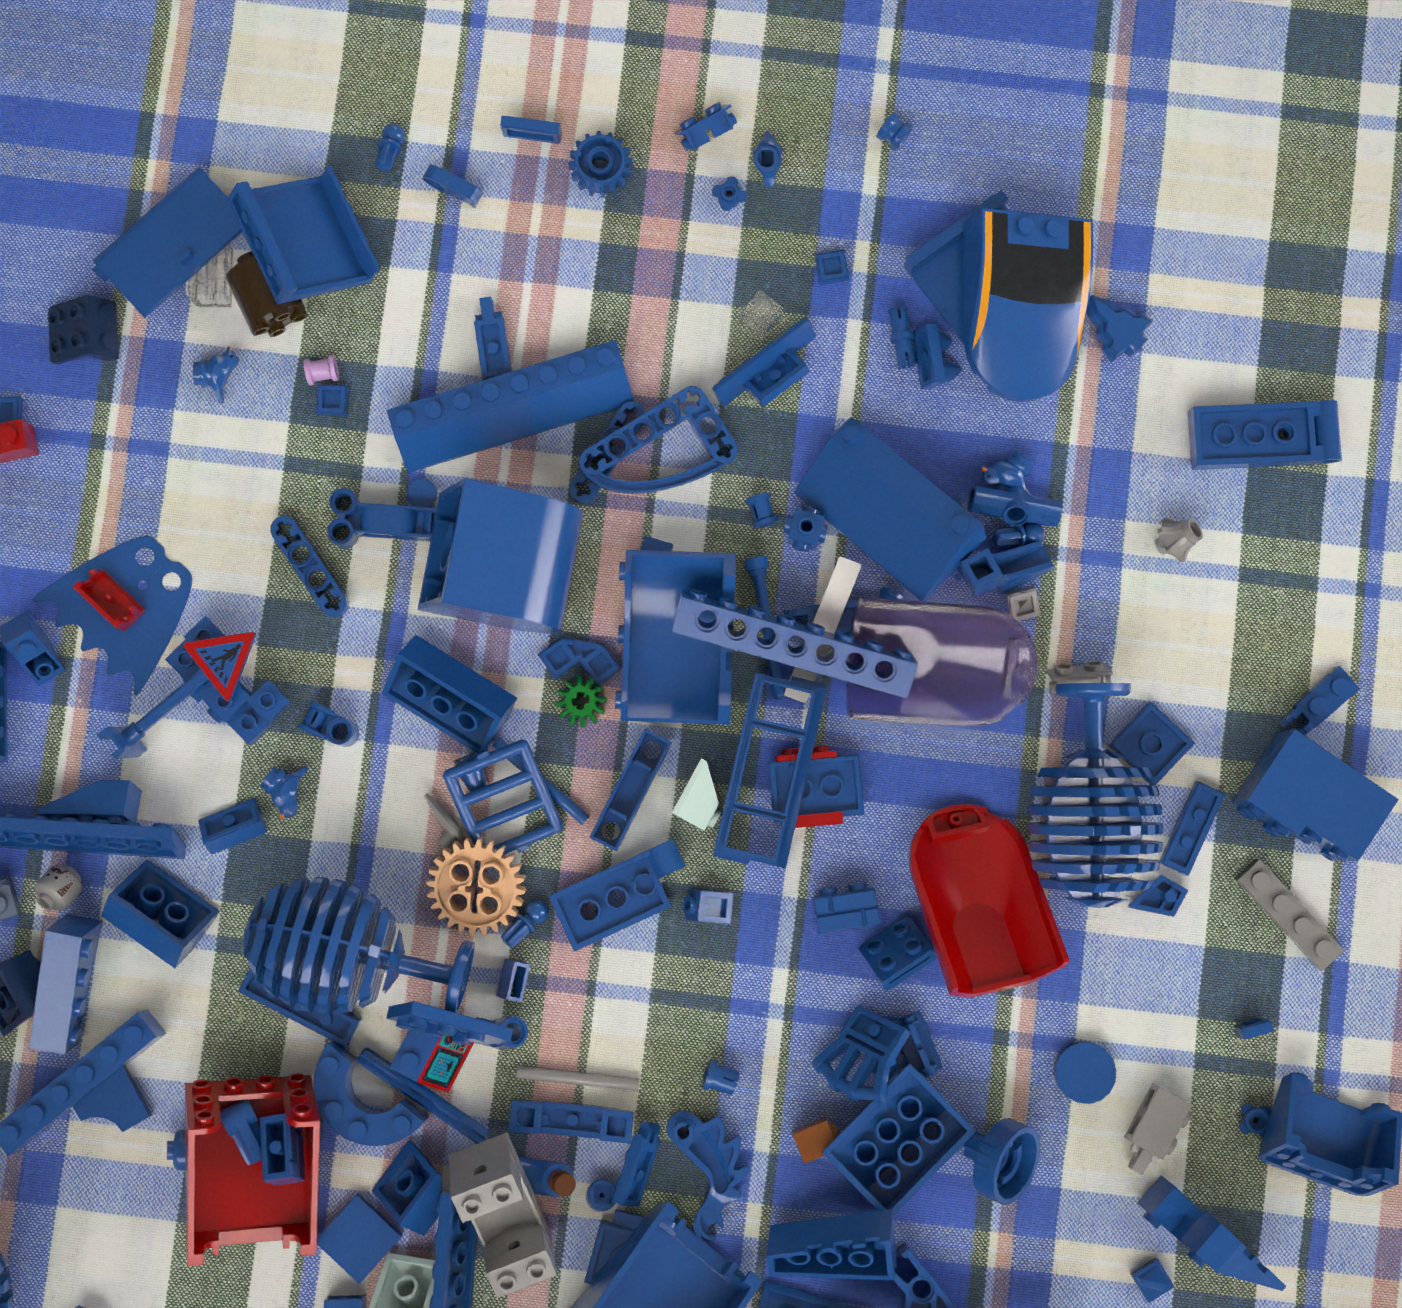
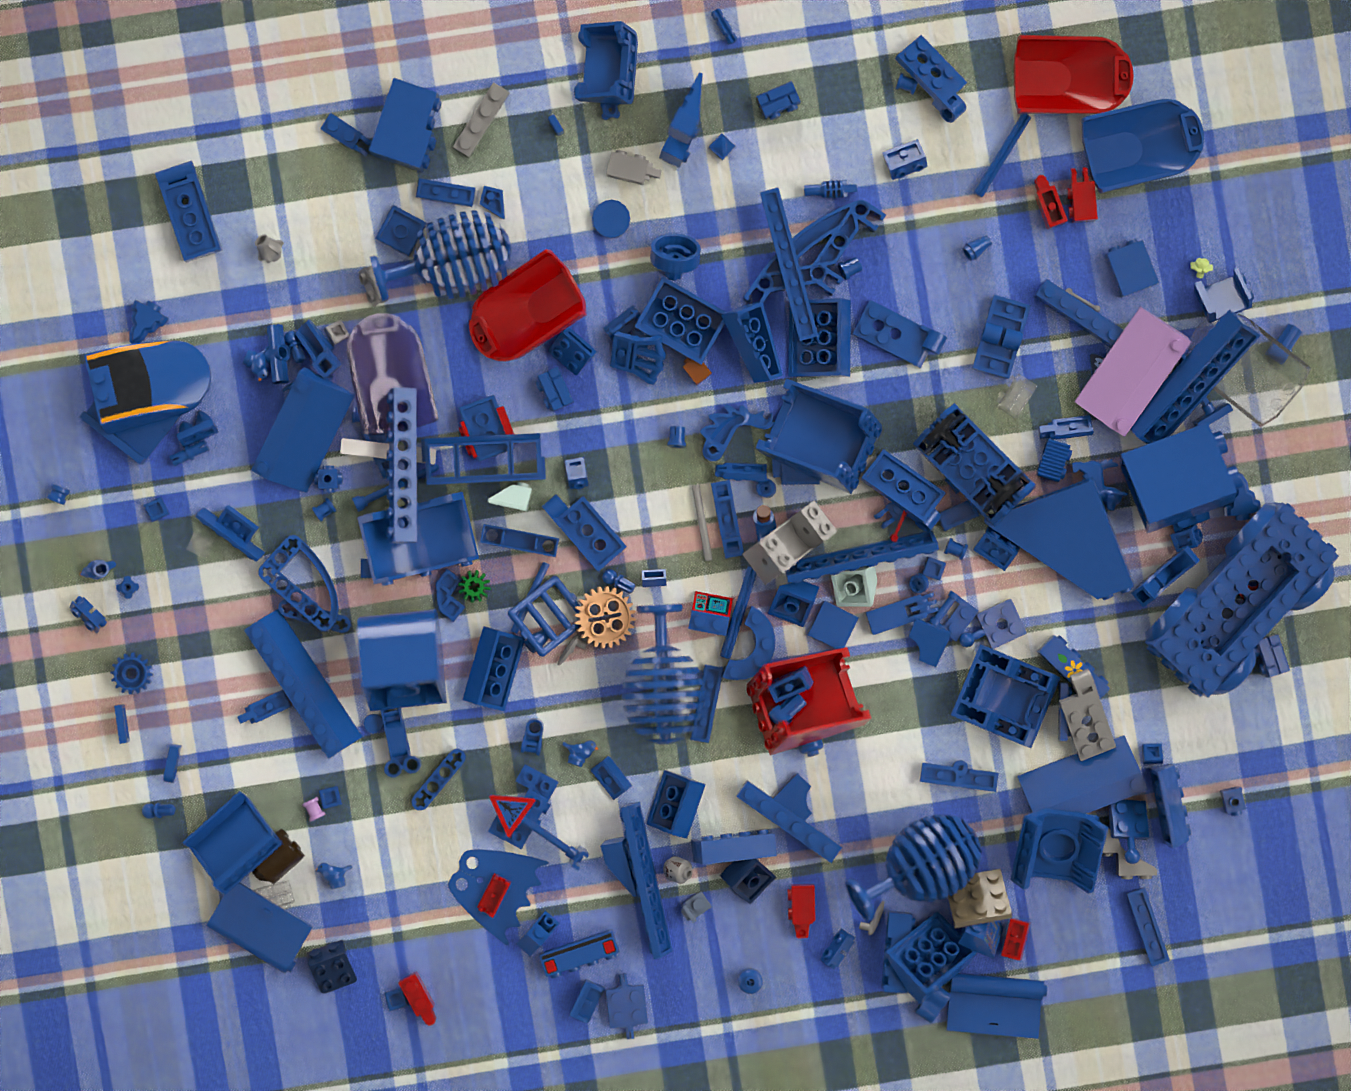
camera: 105 degrees left, 5 degrees up
(460, 1027) = (688, 599): blue hinge -> none

